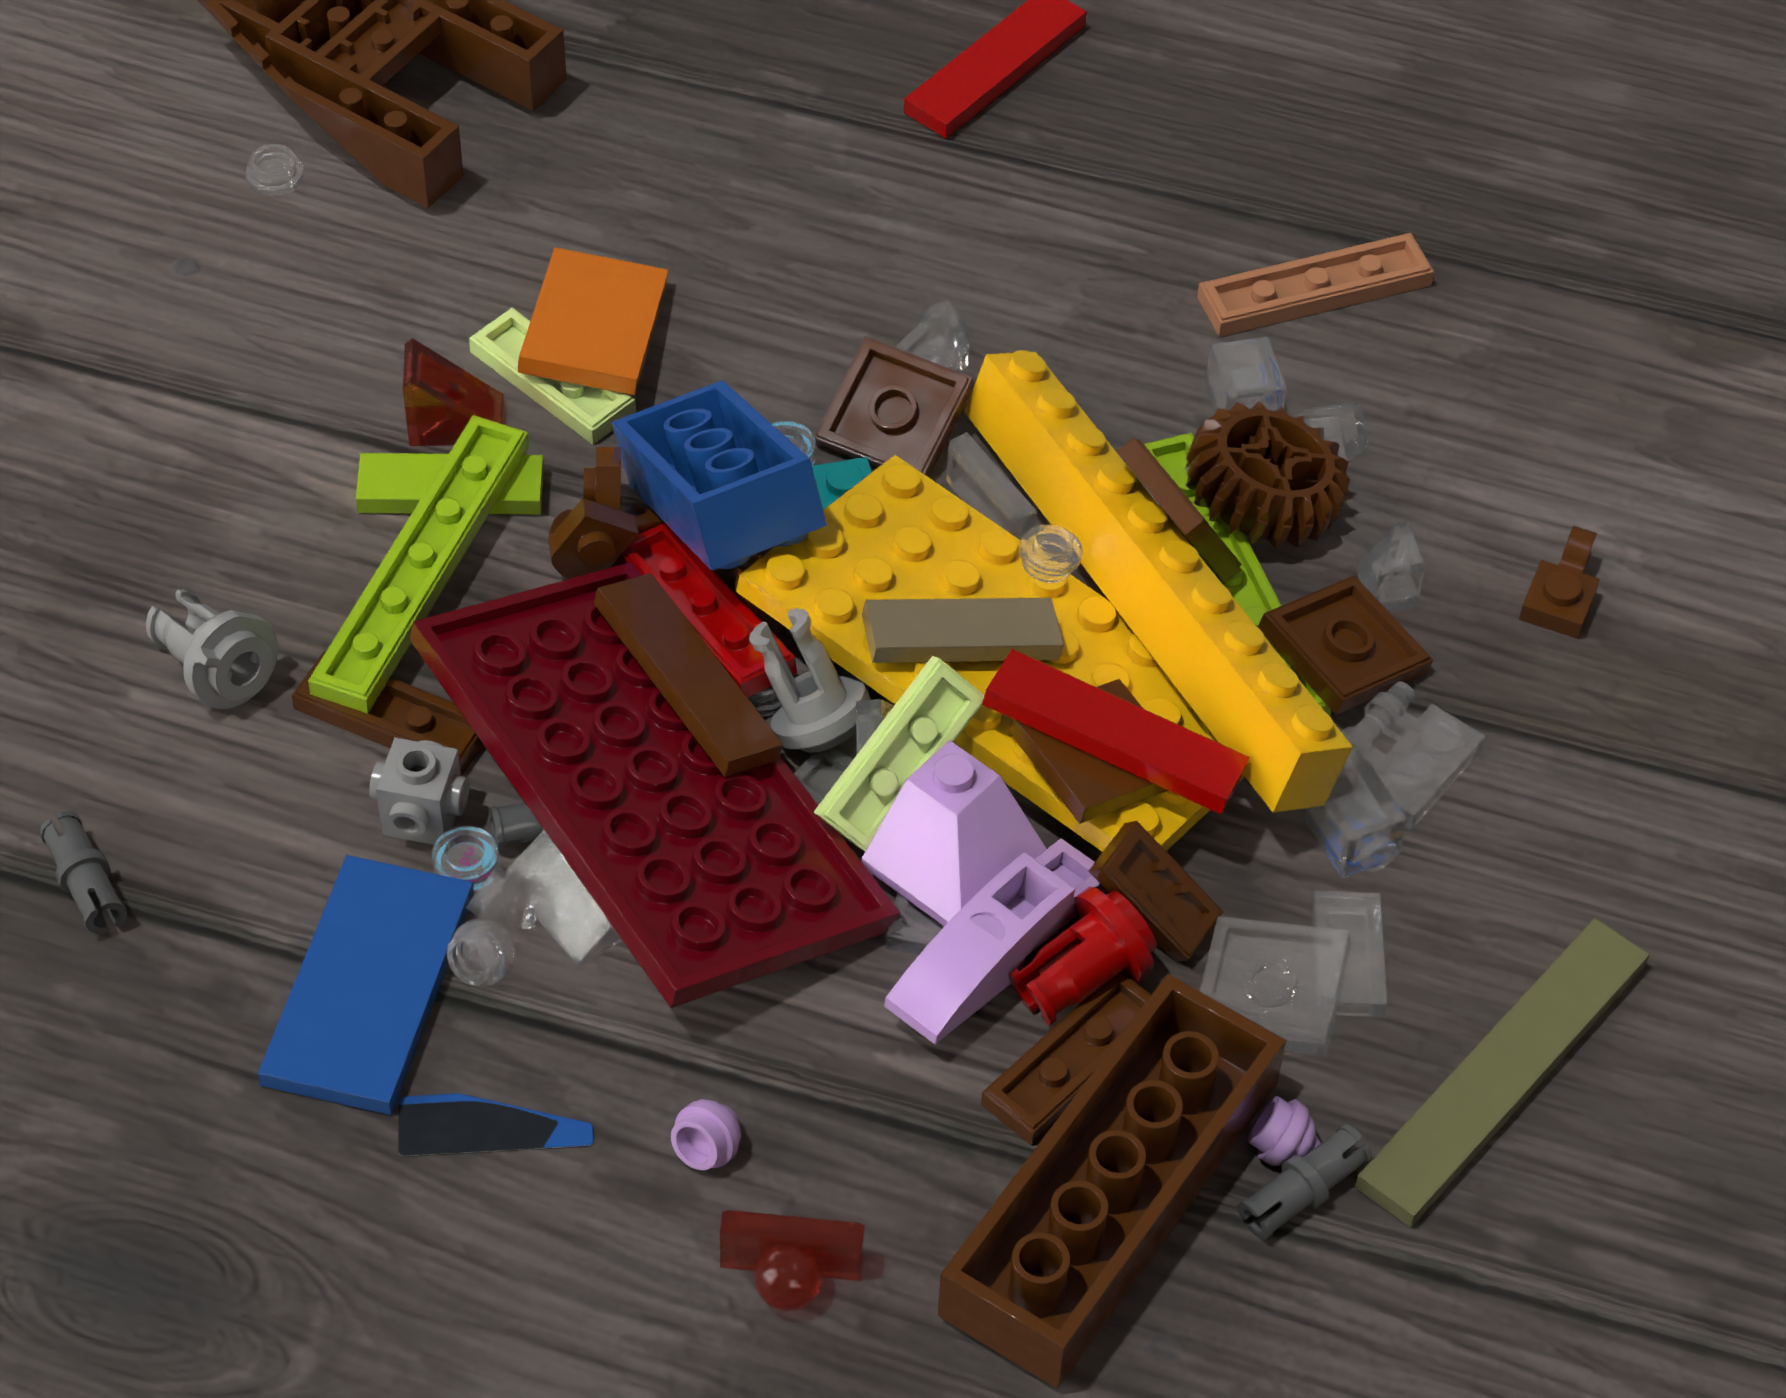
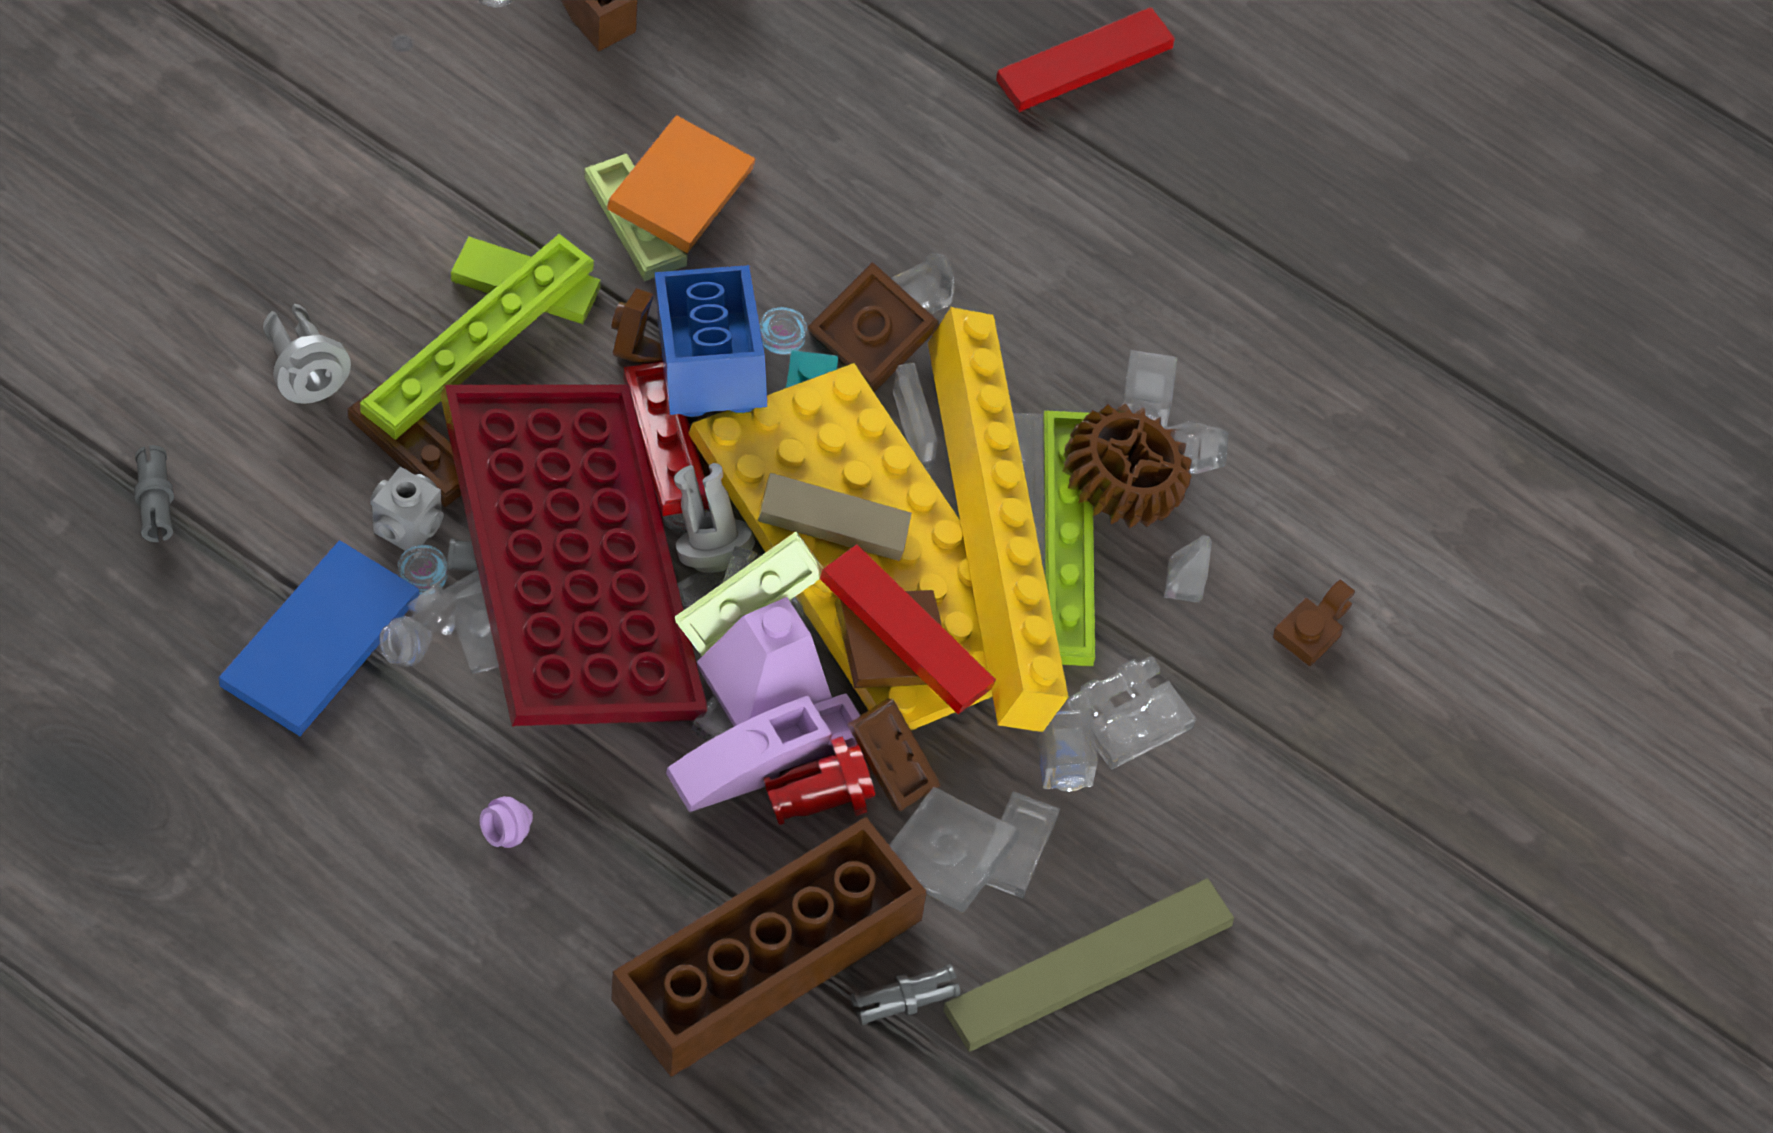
camera: 15 degrees right, 5 degrees up
(443, 397) = (543, 211): clear red slope -> none
(480, 1125) = (354, 762): black sticker -> none
(589, 538) = (604, 357): reddish brown plate -> none
(688, 674) = (629, 484): reddish brown tile -> none
(790, 1254) = (526, 924): clear red tile -> none
(1050, 553) = (930, 477): clear plate -> none
(1052, 1071) = (762, 856): reddish brown tile -> none
(1180, 509) = (1039, 475): reddish brown tile -> none
(1283, 1131) = (907, 955): lavender plate -> none
(1315, 284) = (1247, 322): nougat tile -> none
(1344, 644) = (1125, 615): reddish brown tile -> none

